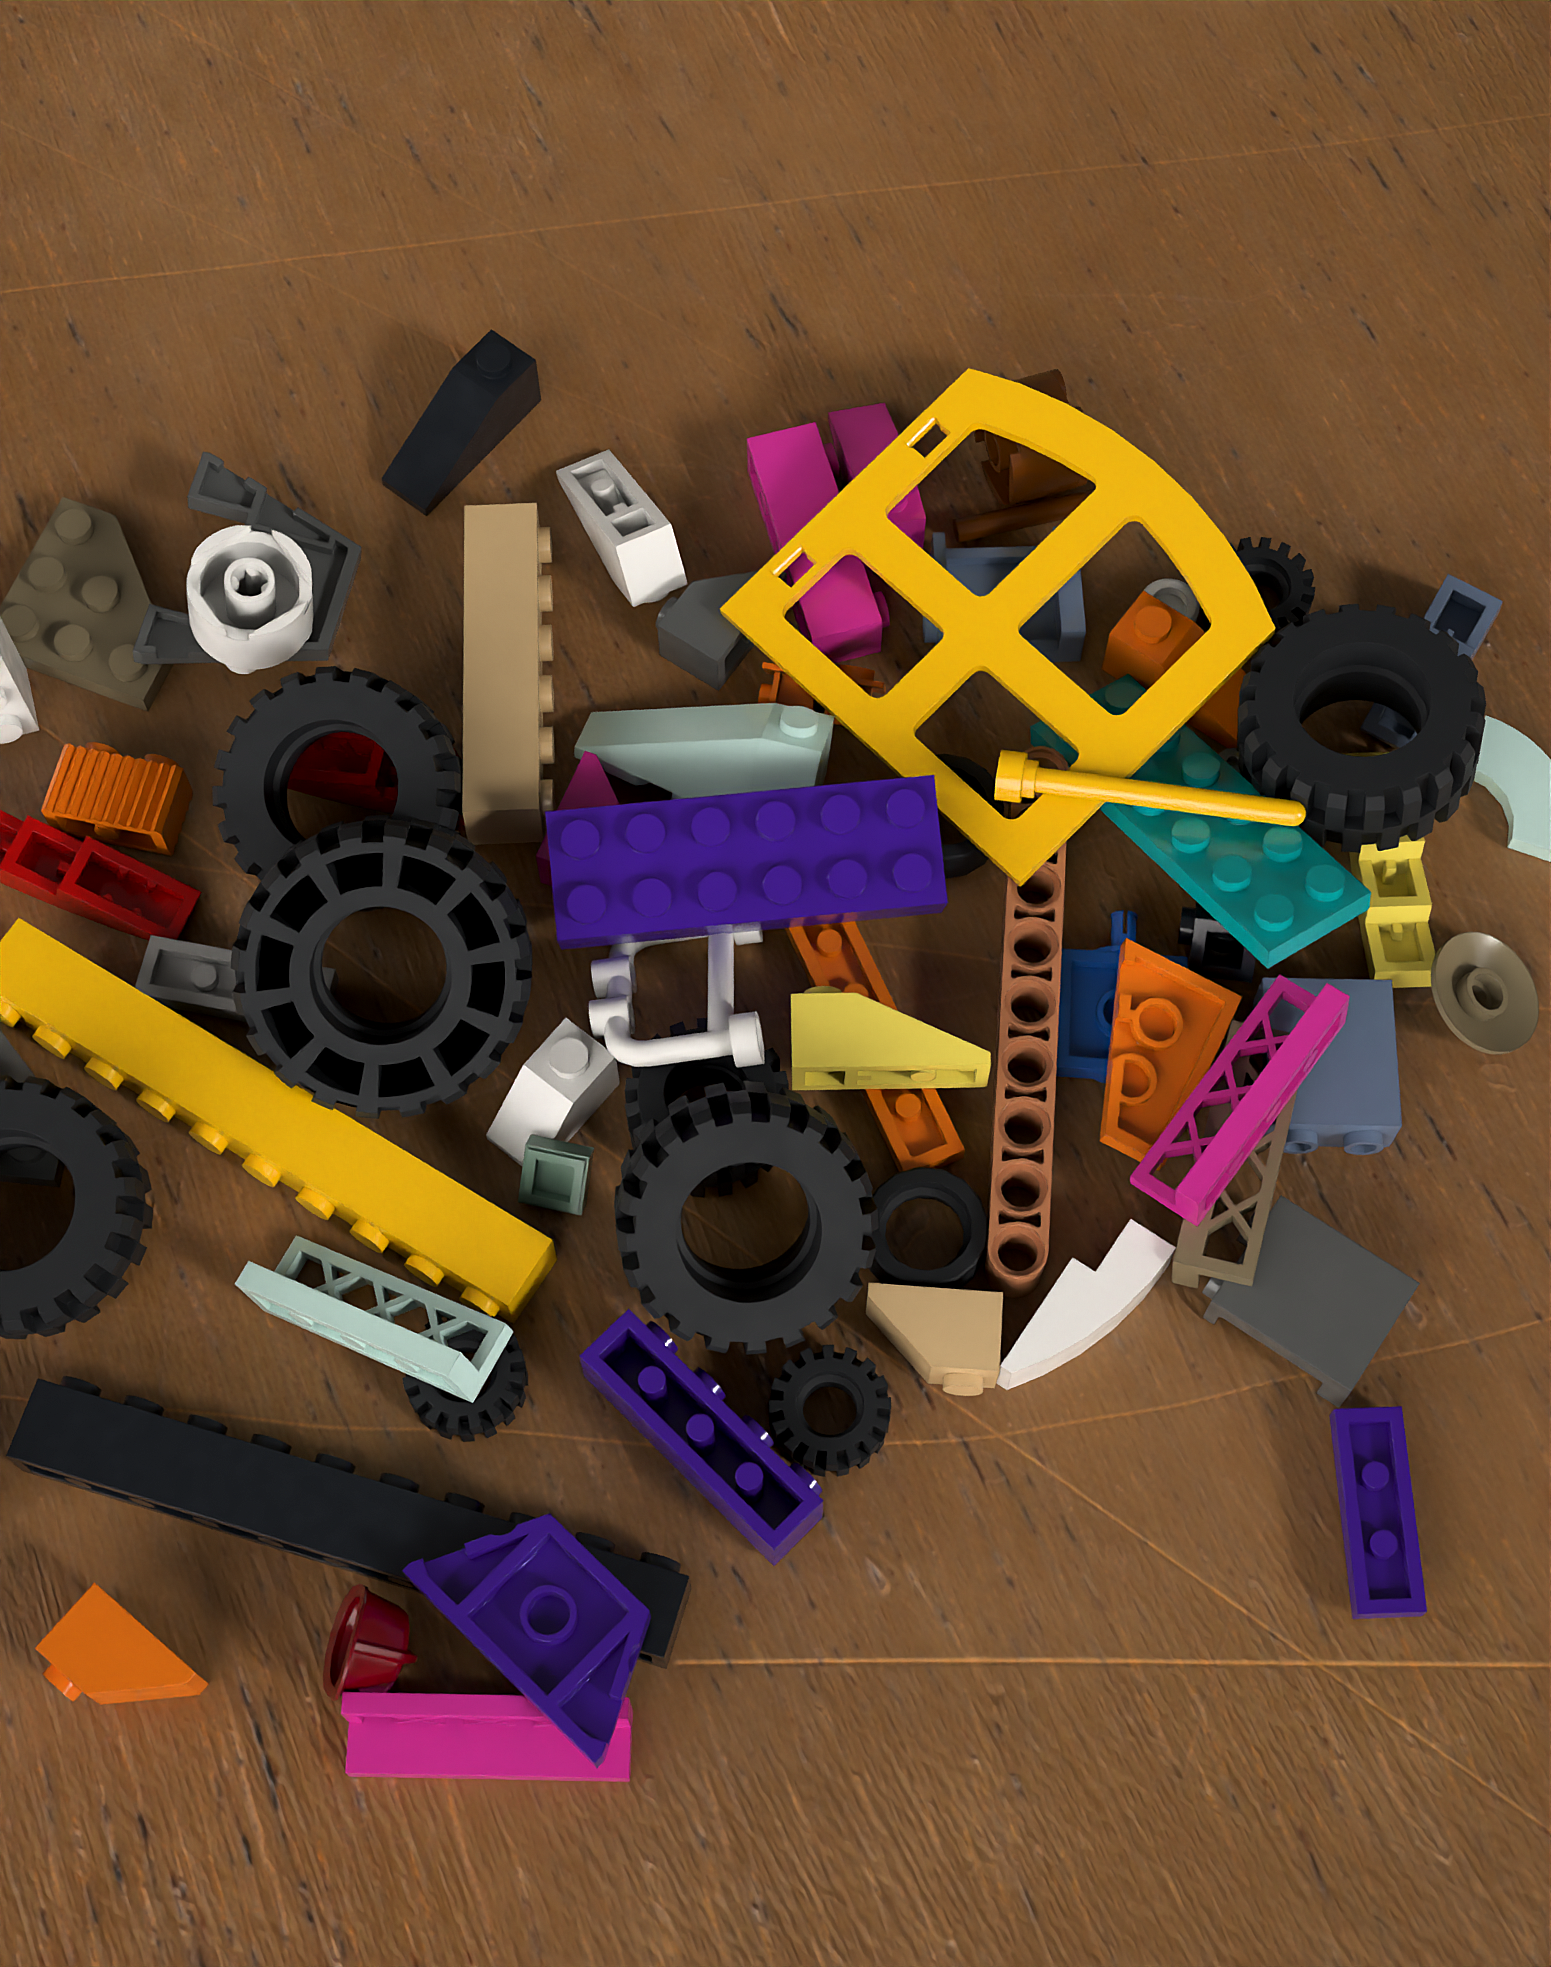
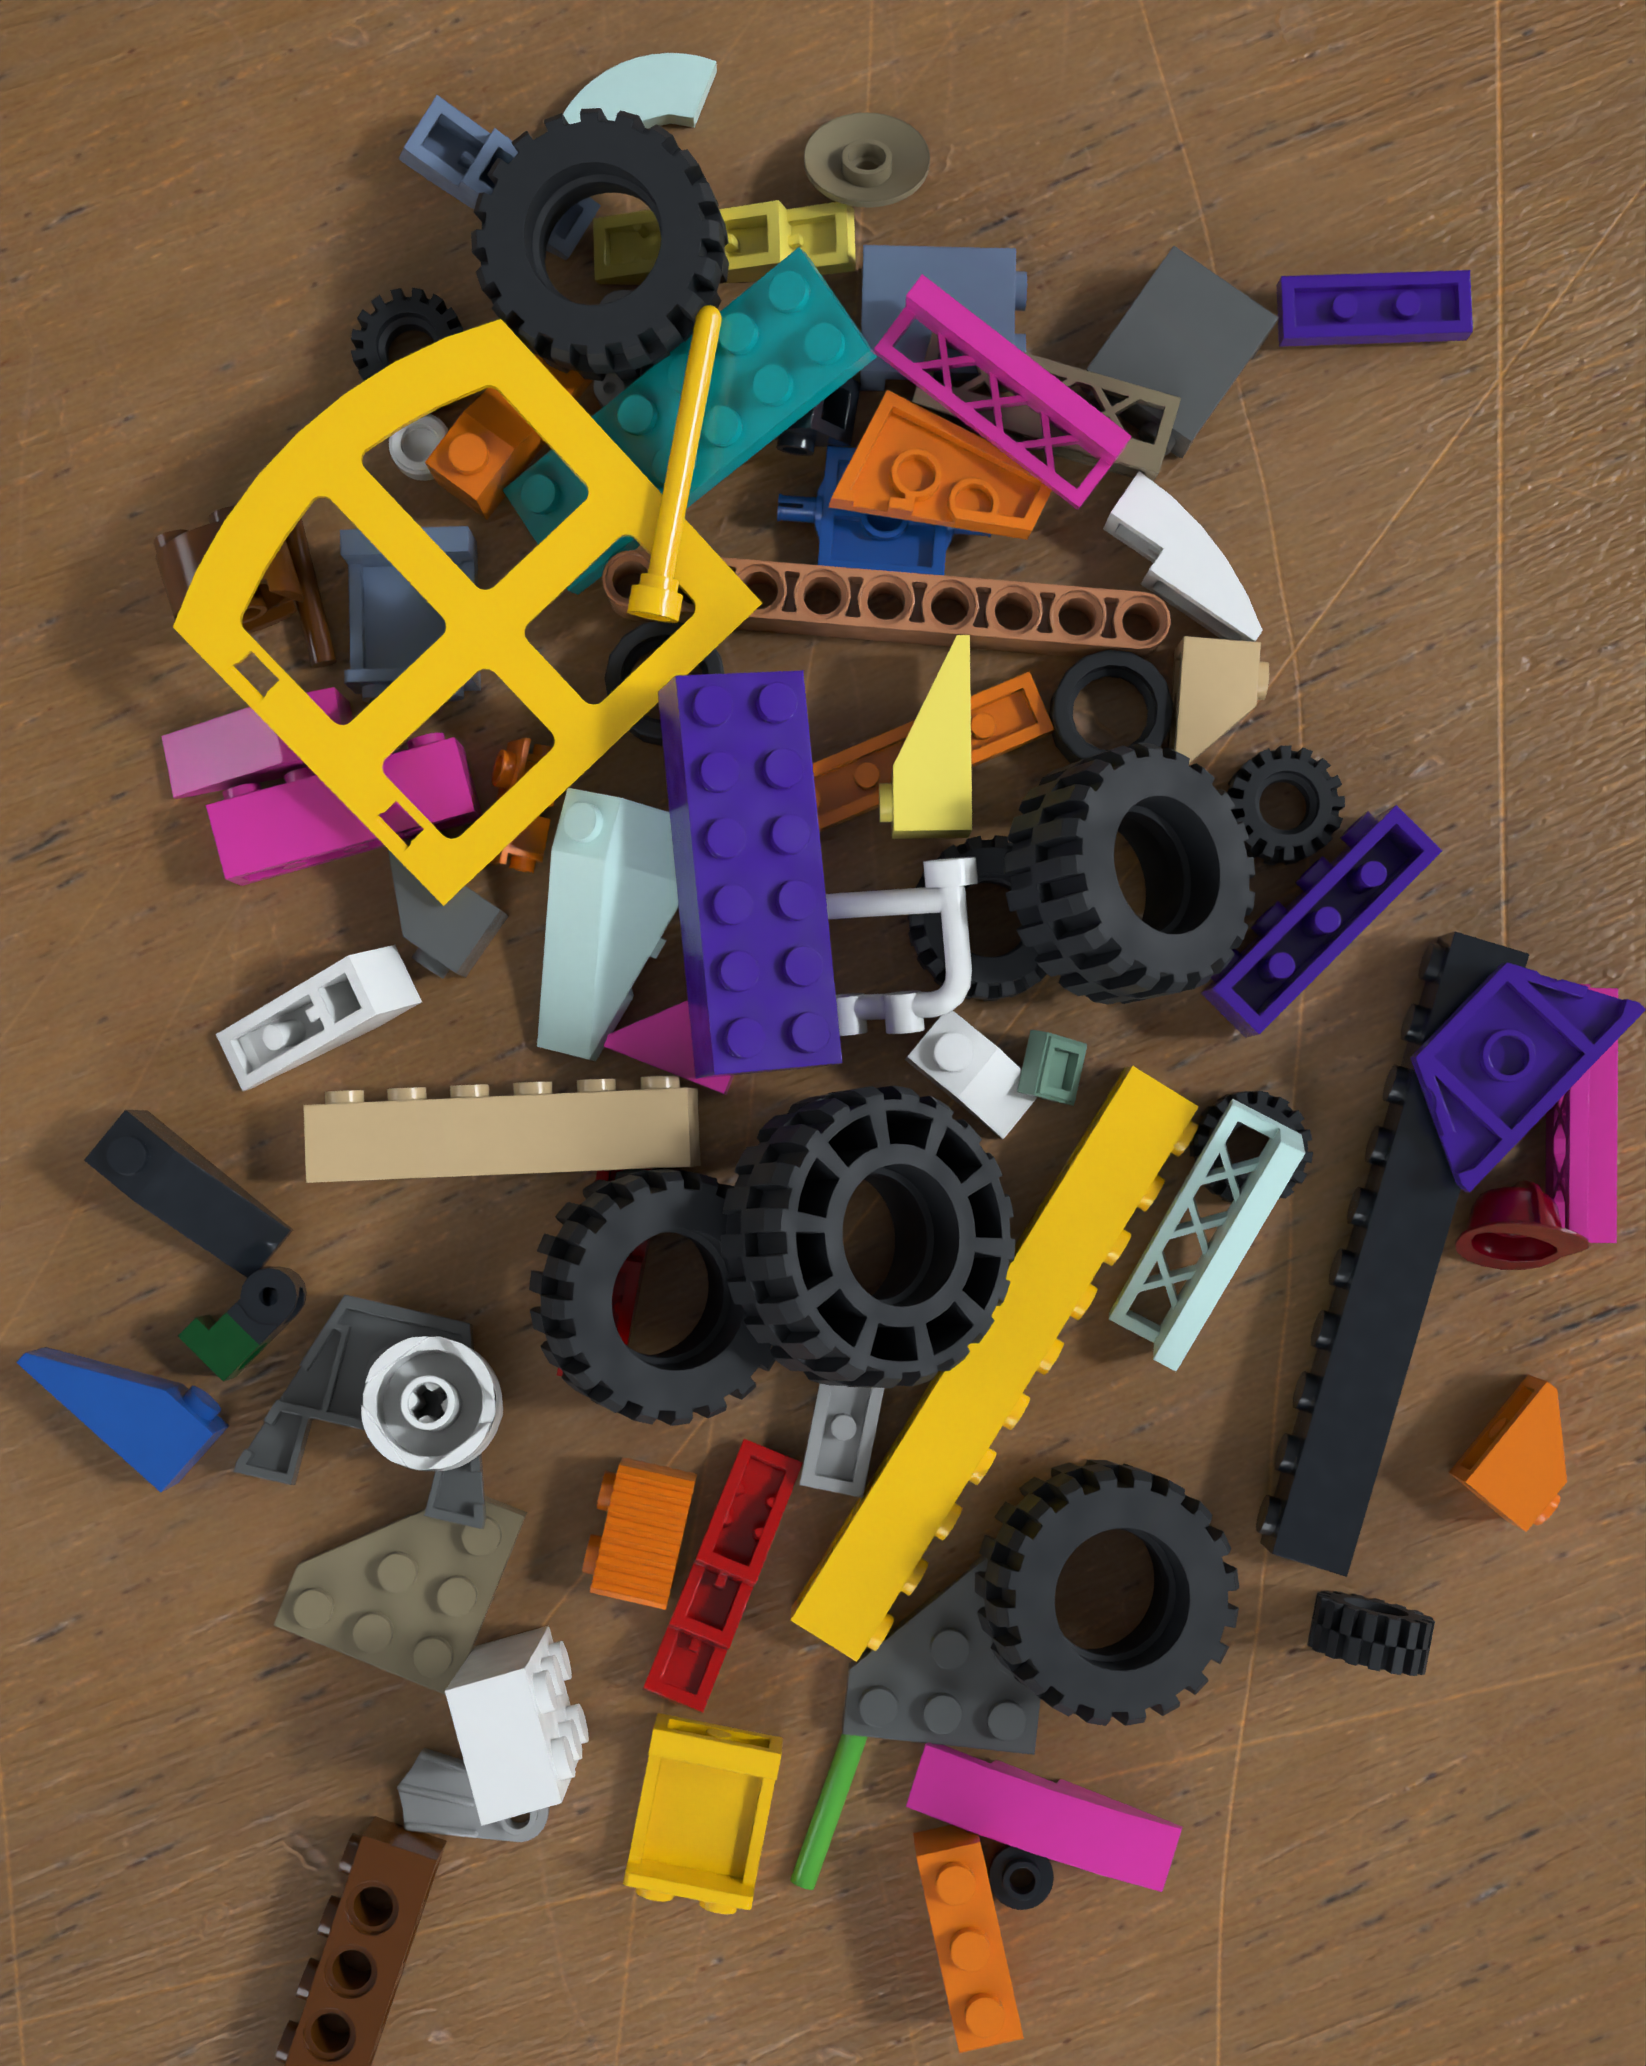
camera: 90 degrees left, 20 degrees up
(260, 389) = (142, 1417): none -> blue slope
(332, 469) = (265, 1307): none -> leg

